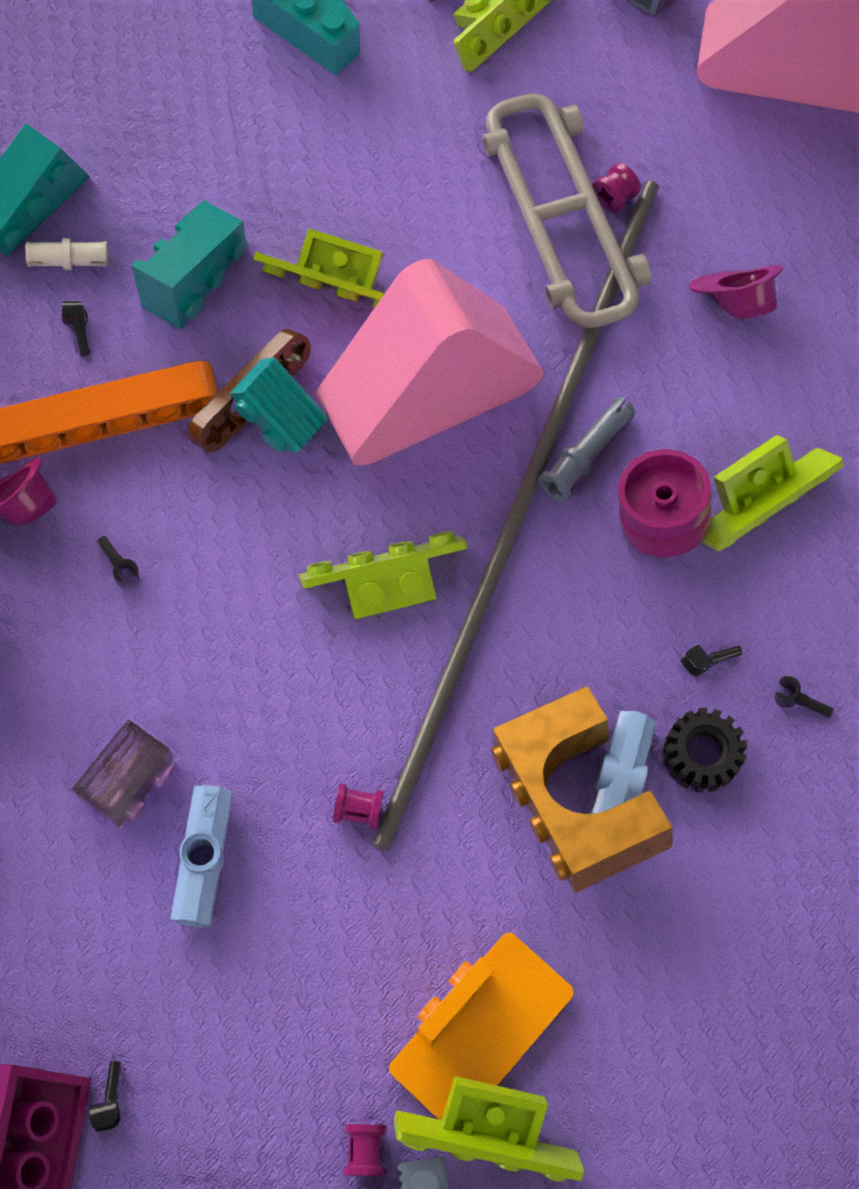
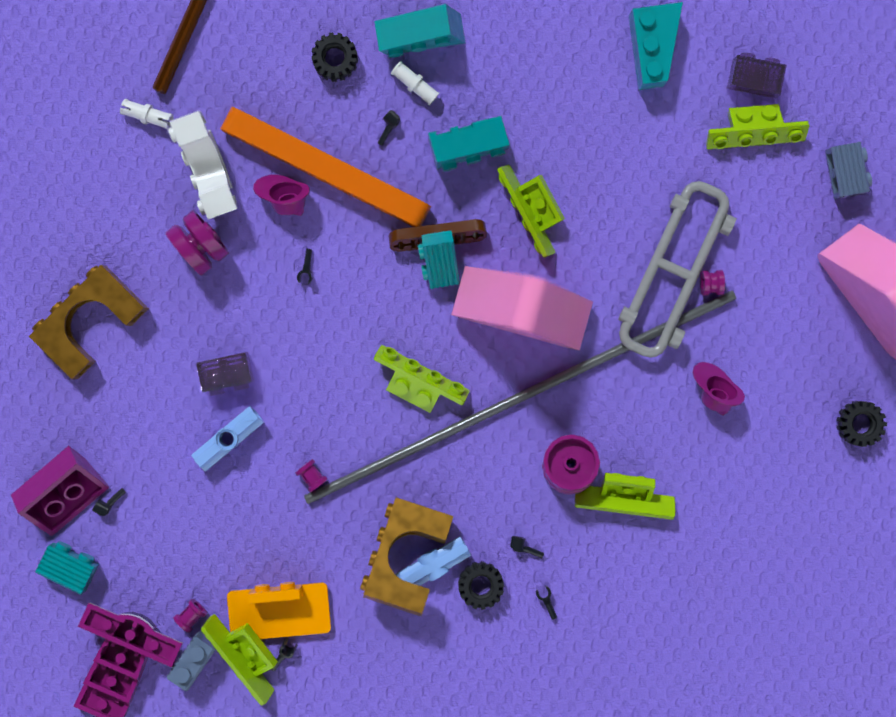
camera: 50 degrees right, 20 degrees up
(543, 1080) = (285, 652): none -> black hand
(577, 460) = (554, 405): sand blue pin -> none

